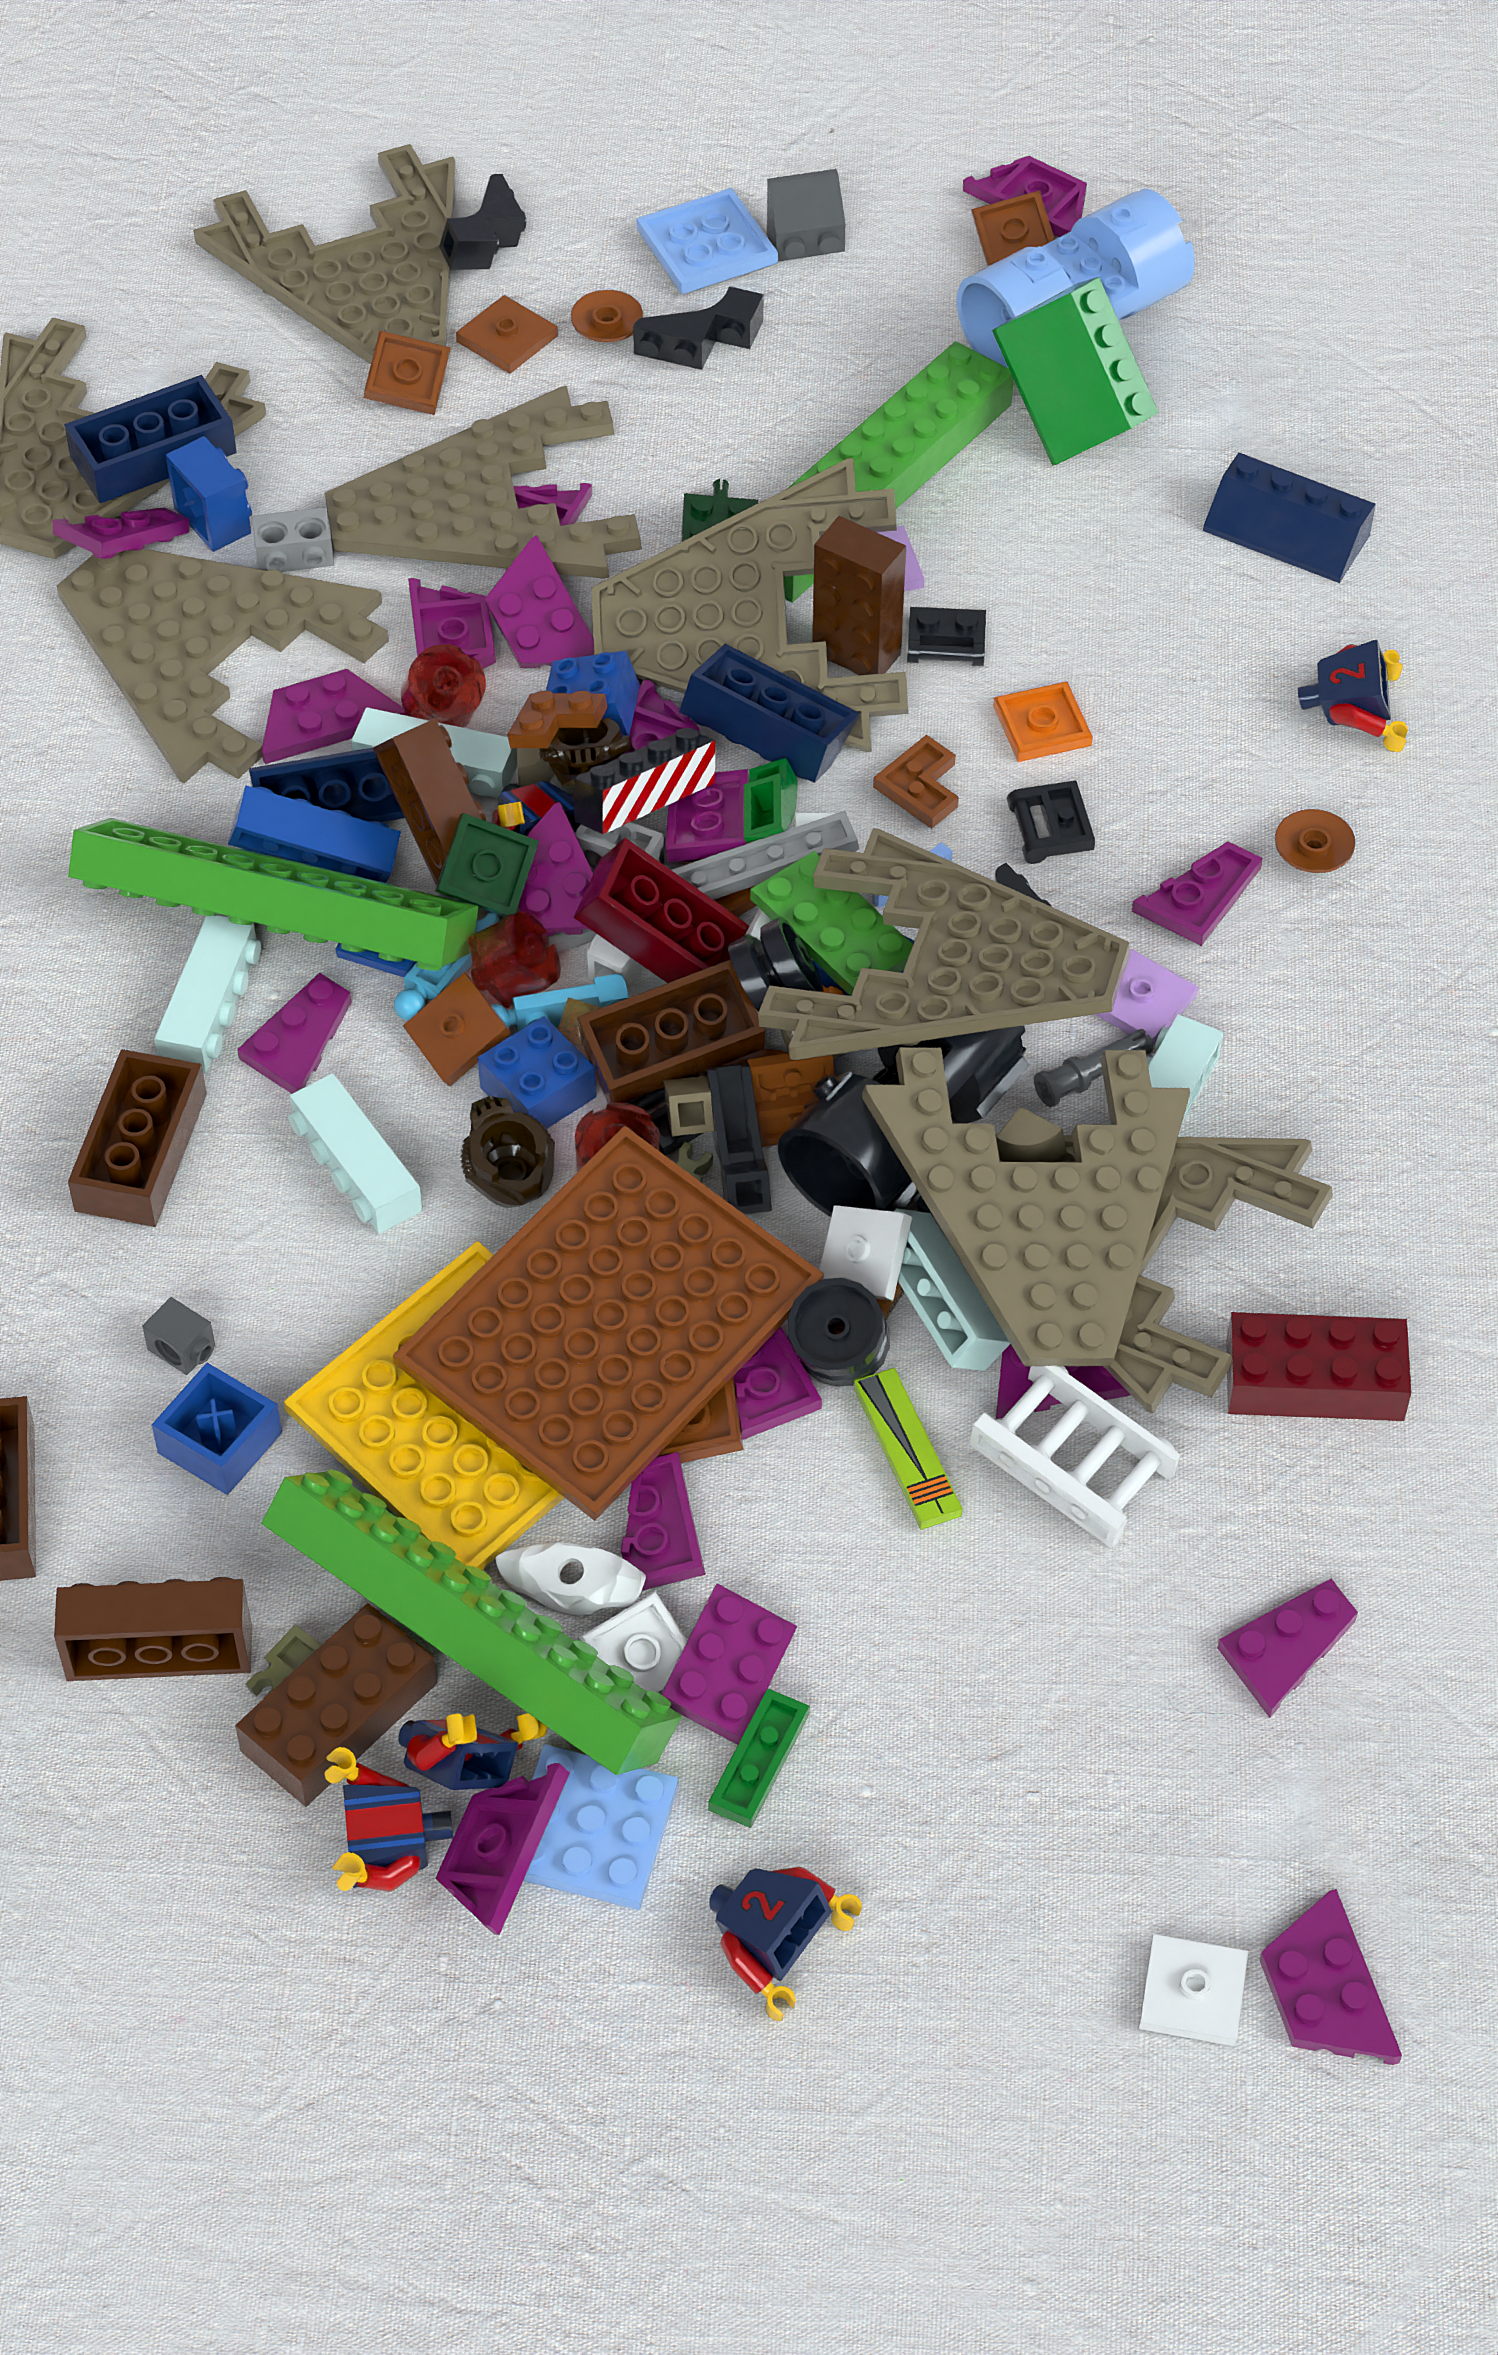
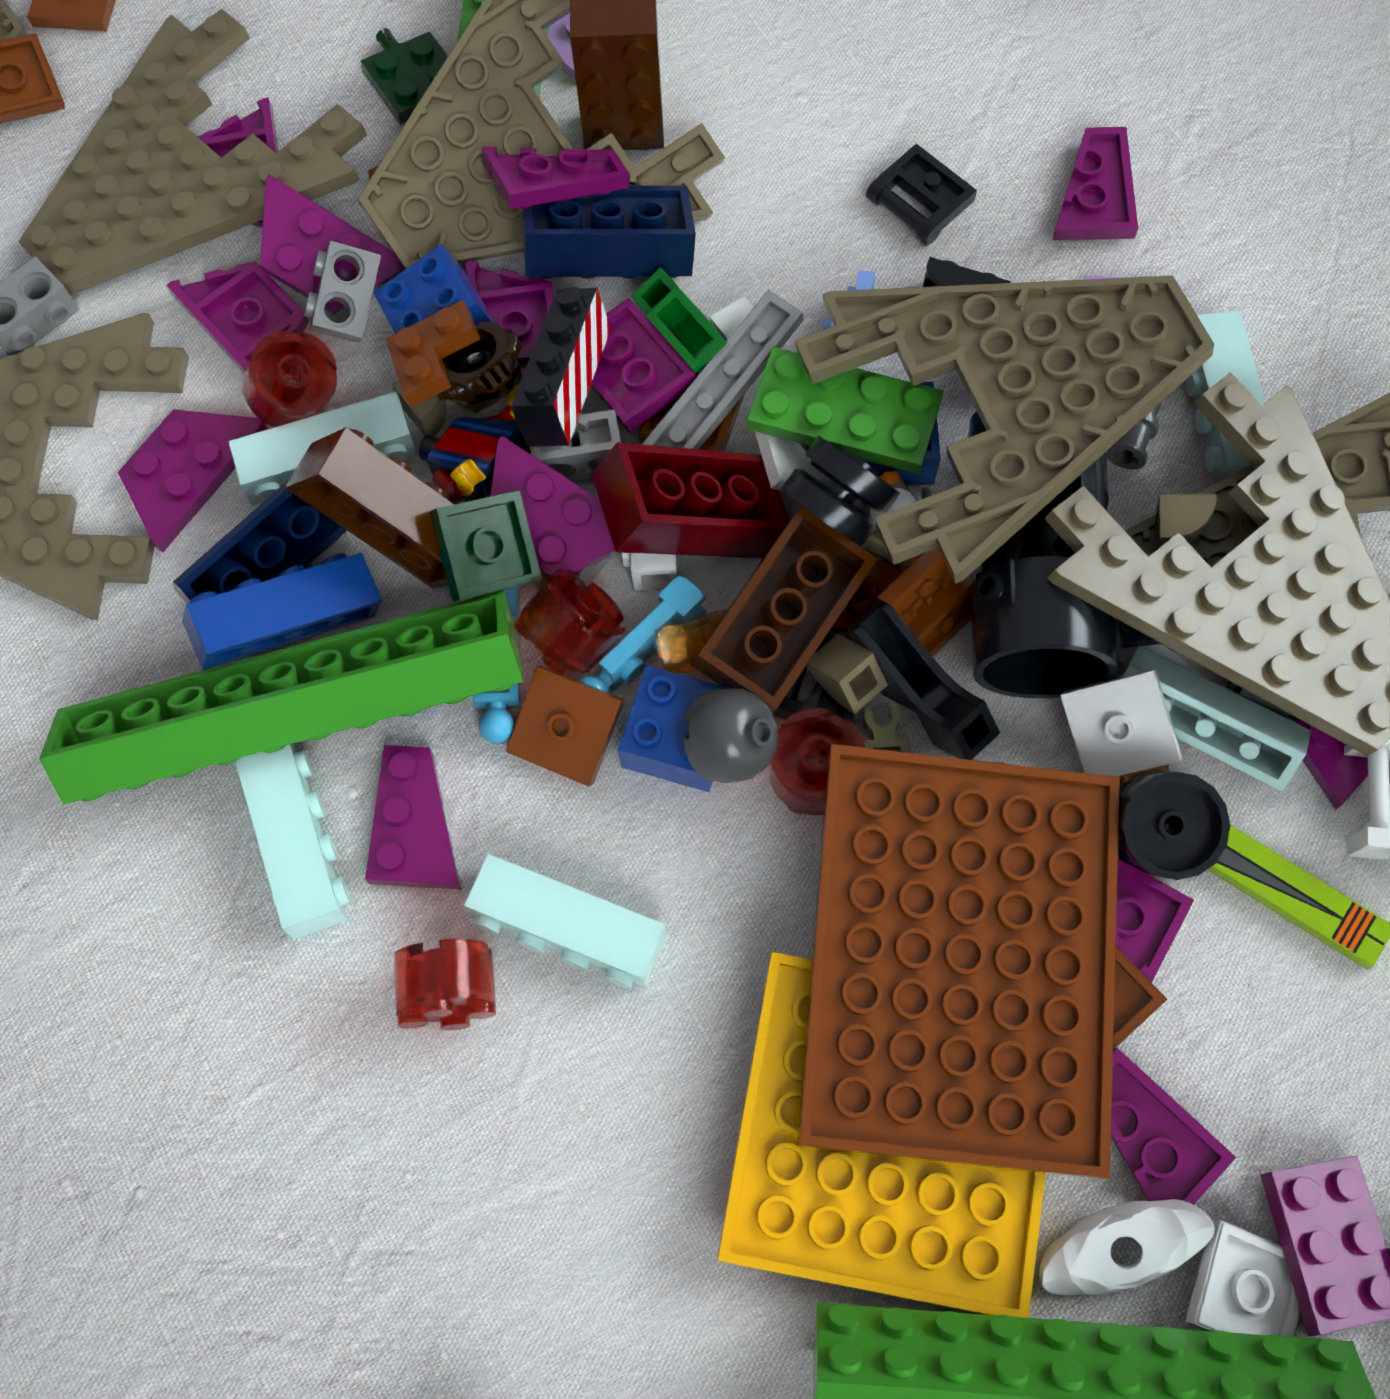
camera: 30 degrees left, 15 degrees up
(137, 1138) = (343, 1050): reddish brown brick -> none
(179, 1336) = (548, 1243): dark grey brick -> none
(217, 1428) = (668, 1333): blue brick -> none
(237, 1135) = (444, 984): none -> clear red brick
(507, 1154) = (720, 833): dark brown helmet -> none
(538, 654) = (353, 294): none -> light grey brick
(561, 1087) = (730, 735): none -> dark grey cylinder
(742, 645) = (542, 179): none -> magenta wing
(913, 783) = (777, 230): dark orange plate -> none
(946, 635) = (691, 61): black plate -> none
(1042, 721) = (835, 105): orange tile -> none
(1315, 841) = (1153, 86): dark orange dish -> none

